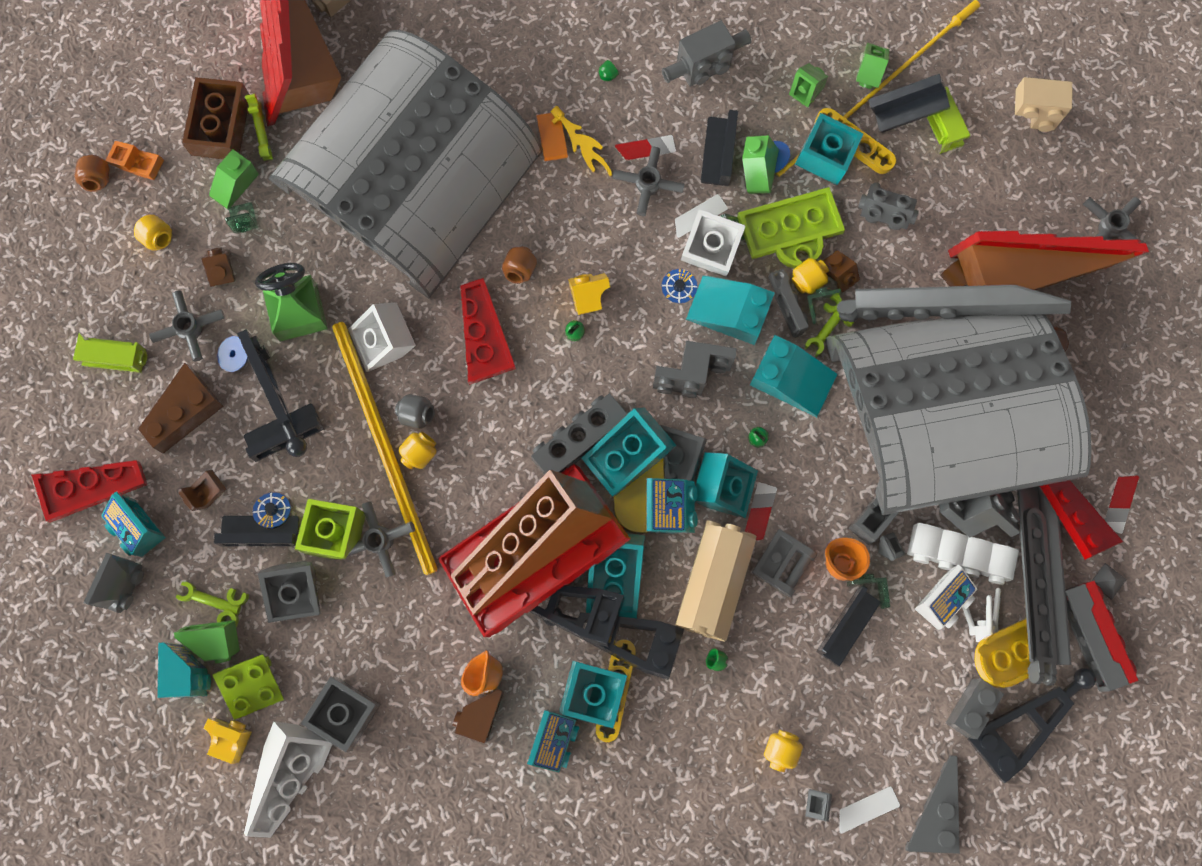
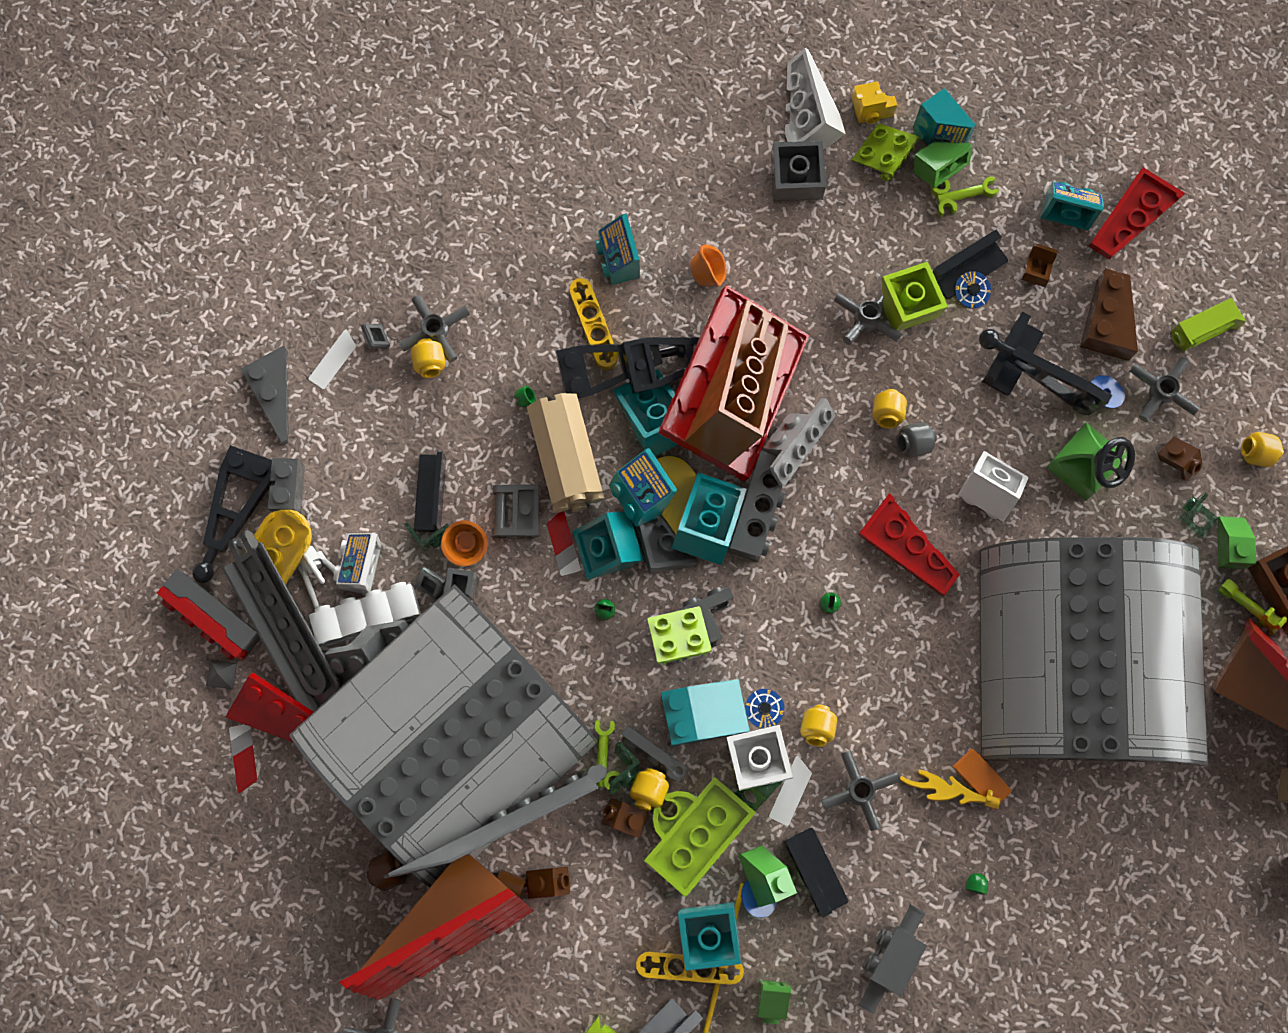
camera: 150 degrees right, 0 degrees up
(114, 583) = (1048, 154): dark grey slope -> none
(289, 591) = (909, 235): dark grey slope -> none
(384, 447) = (923, 398): yellow axle -> none
(478, 717) = (689, 234): reddish brown slope -> none
(513, 473) = (796, 439): none -> light grey bracket
(519, 264) = (921, 629): dark orange head -> none
(587, 291) = (843, 641): yellow brick -> none
(592, 694) = (610, 304): teal slope -> none
(642, 148) = (891, 826): red sticker -> none
(648, 243) = (818, 726): none -> yellow head
(722, 358) = (679, 635): none -> hinge
(773, 777) = (430, 320): none -> dark grey bar
(794, 376) = (606, 682): teal slope -> none
(888, 207) = (617, 911): dark grey brick -> none
(928, 259) = (548, 882): none -> reddish brown bracket

